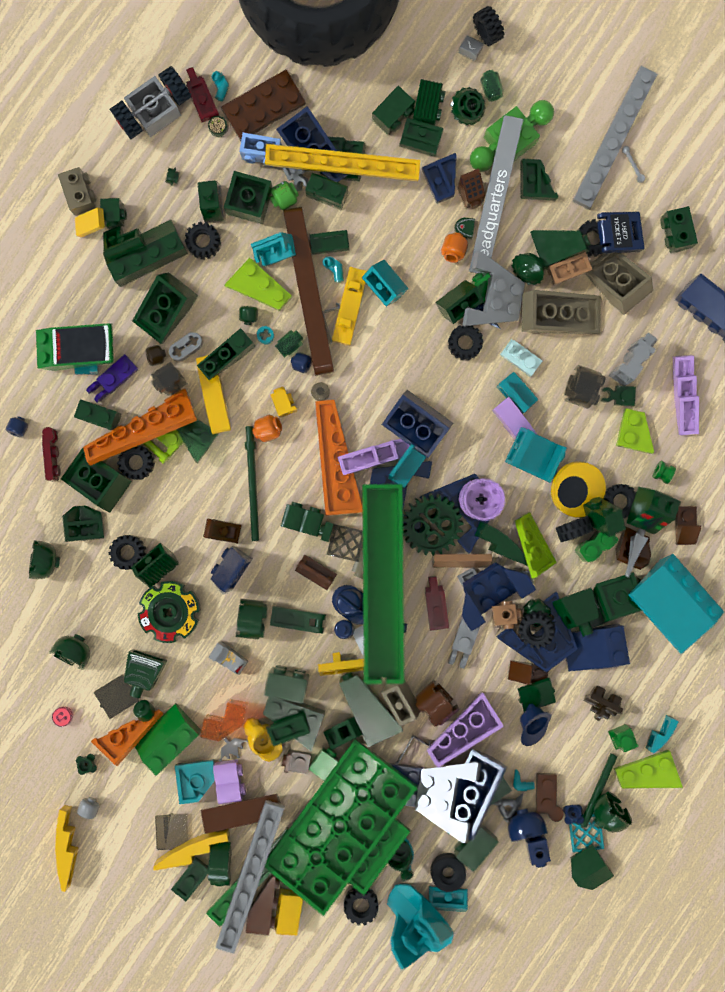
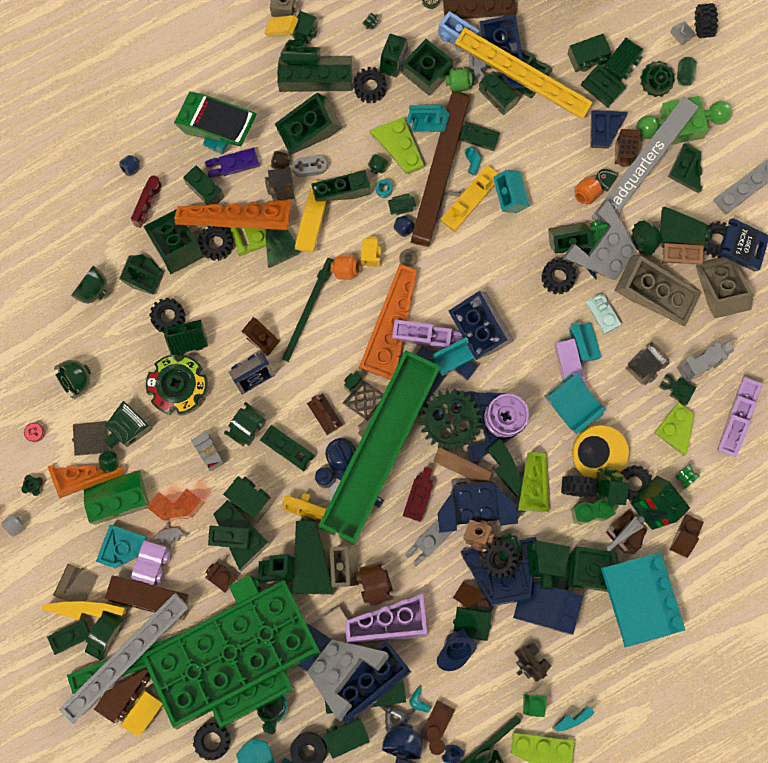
camera: 30 degrees right, 10 degrees down
(256, 732) = (199, 530): yellow piece -> none
(301, 519) = (336, 361): dark green brick -> none

